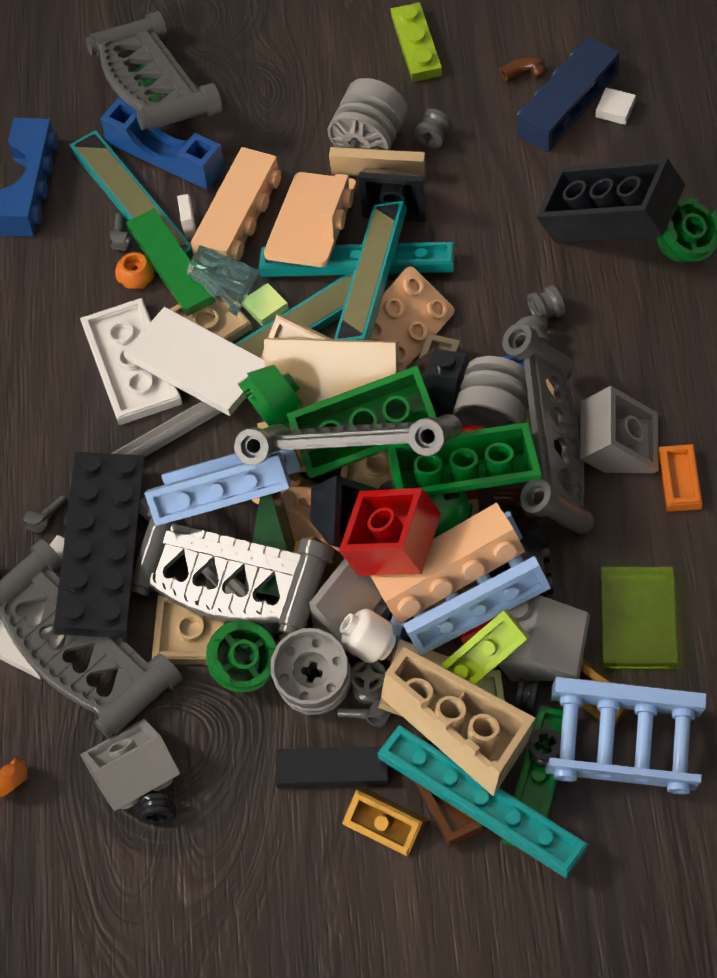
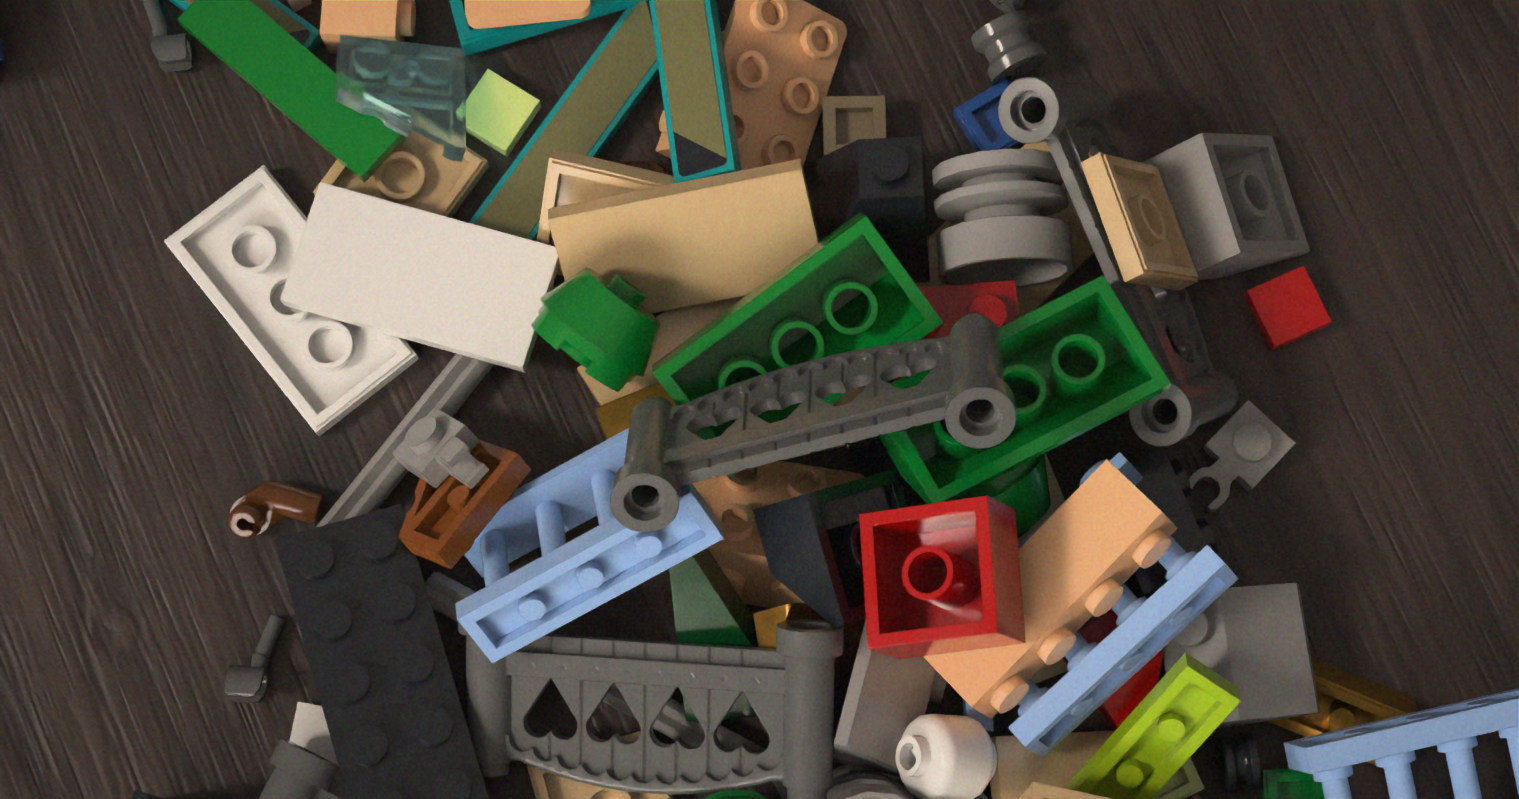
camera: 25 degrees left, 20 degrees up
(80, 443) = (271, 503): none -> reddish brown arm
(134, 271) = (229, 127): orange plate -> none
(162, 461) = (452, 515): none -> dark orange wing
(171, 433) = (440, 447): none -> light grey plate
(562, 416) = (1139, 222): none -> tan tile
(585, 553) = (1242, 452): none -> light grey plate
(635, 493) = (1287, 308): none -> red tile
(638, 617) = (1369, 549): clear neon green tile -> none
(680, 478) = (1352, 255): orange tile -> none

